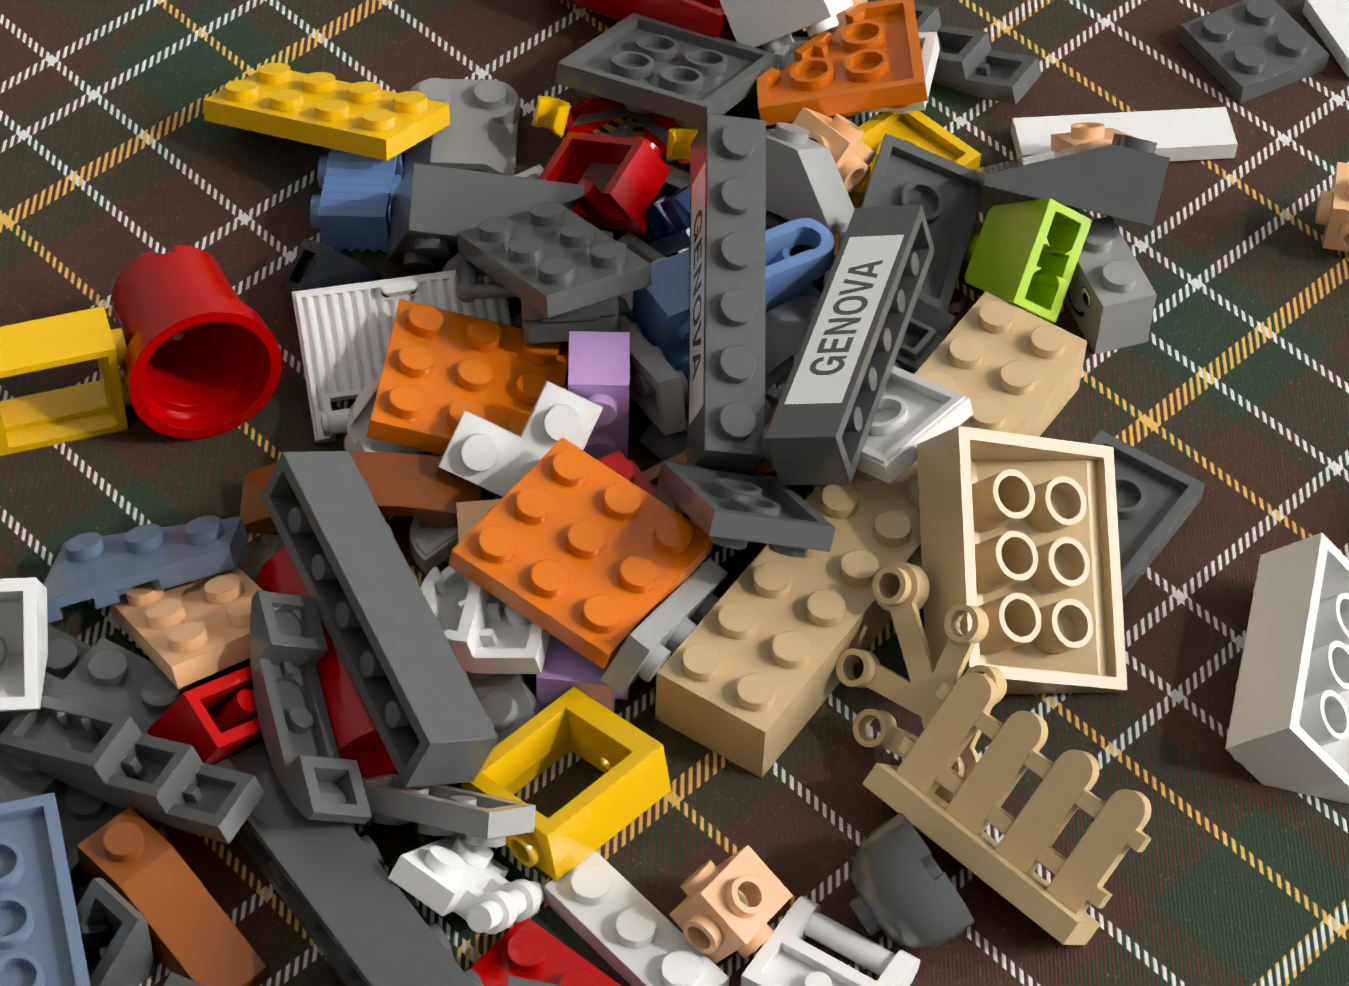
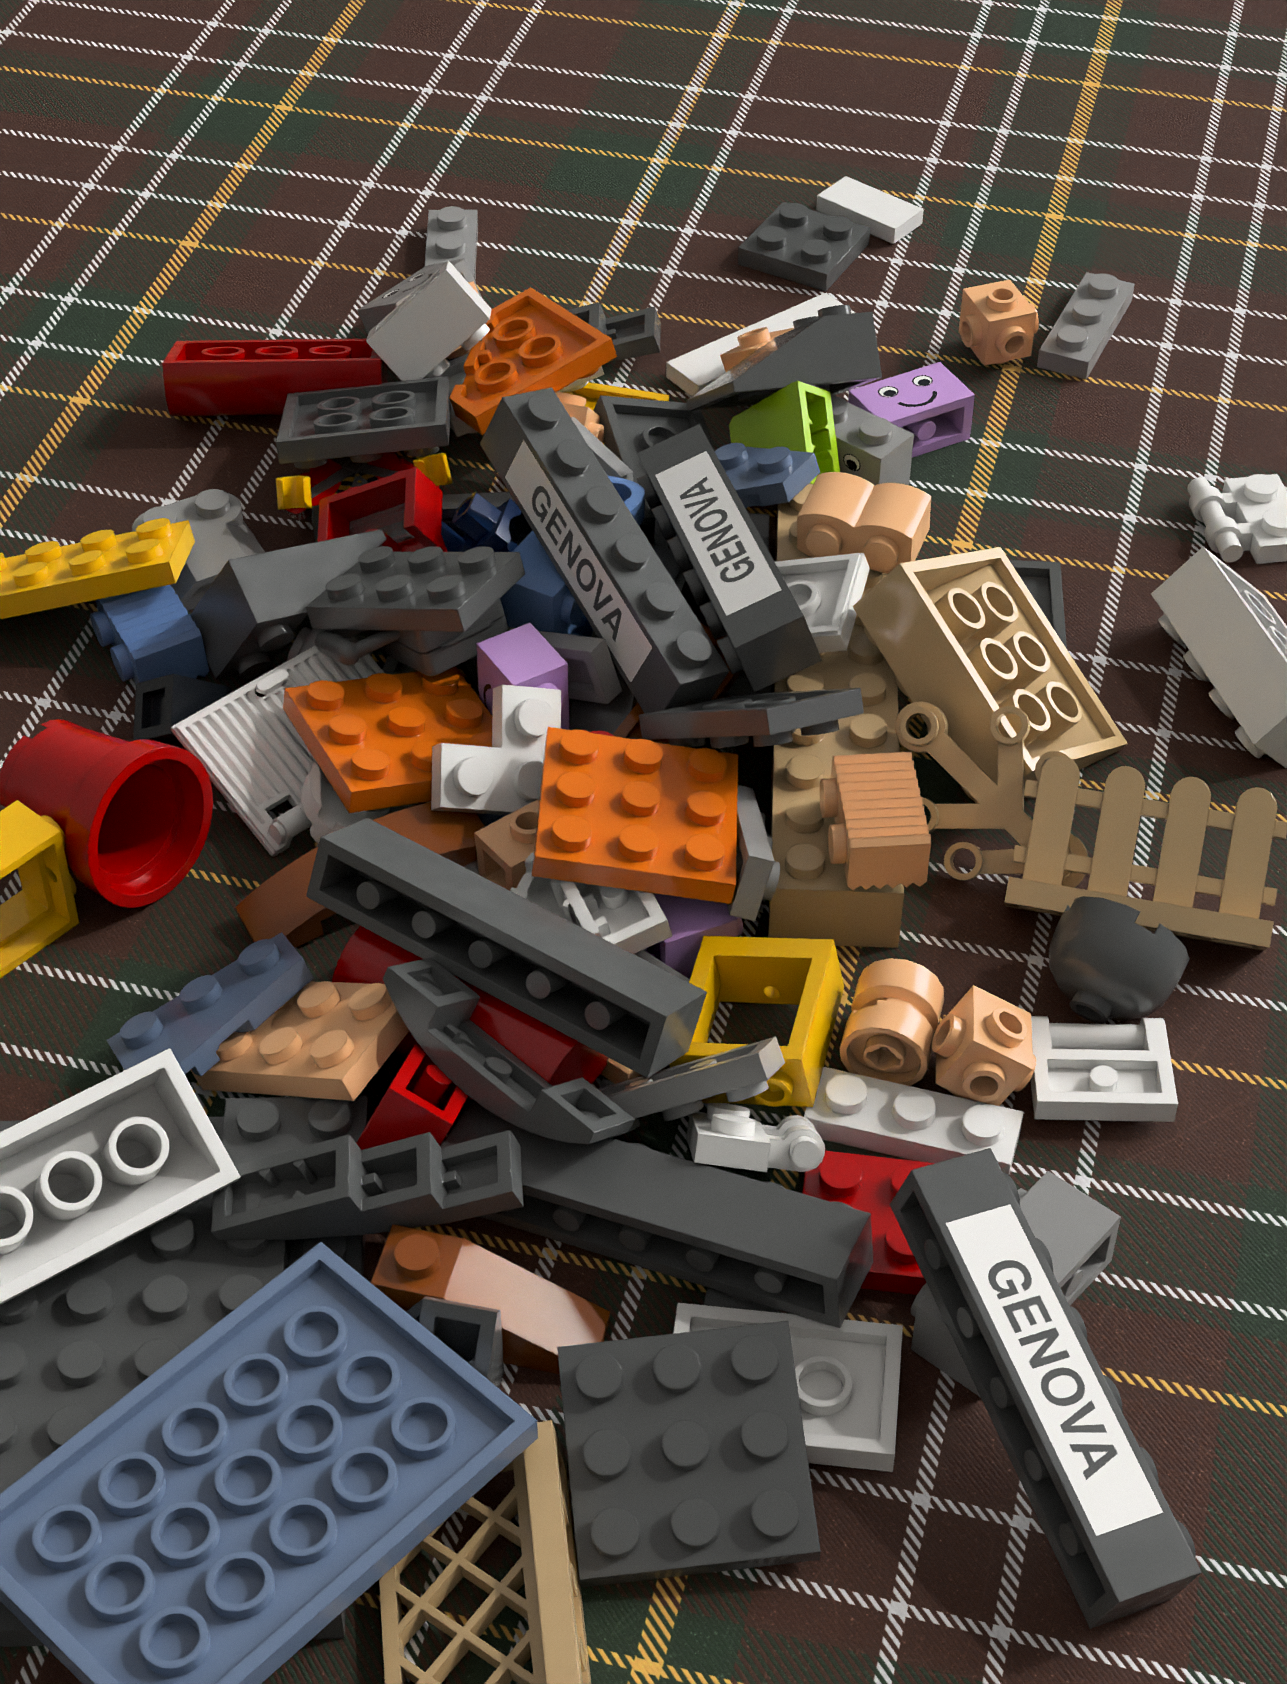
camera: 30 degrees left, 5 degrees down
(685, 834) = (892, 1021): none -> light nougat wheel
(773, 654) = (878, 820): none -> light nougat brick
(969, 275) = (767, 475): none -> sand blue wing
(1006, 367) = (855, 516): none -> light nougat brick
(1199, 268) = (924, 402): none -> lavender brick

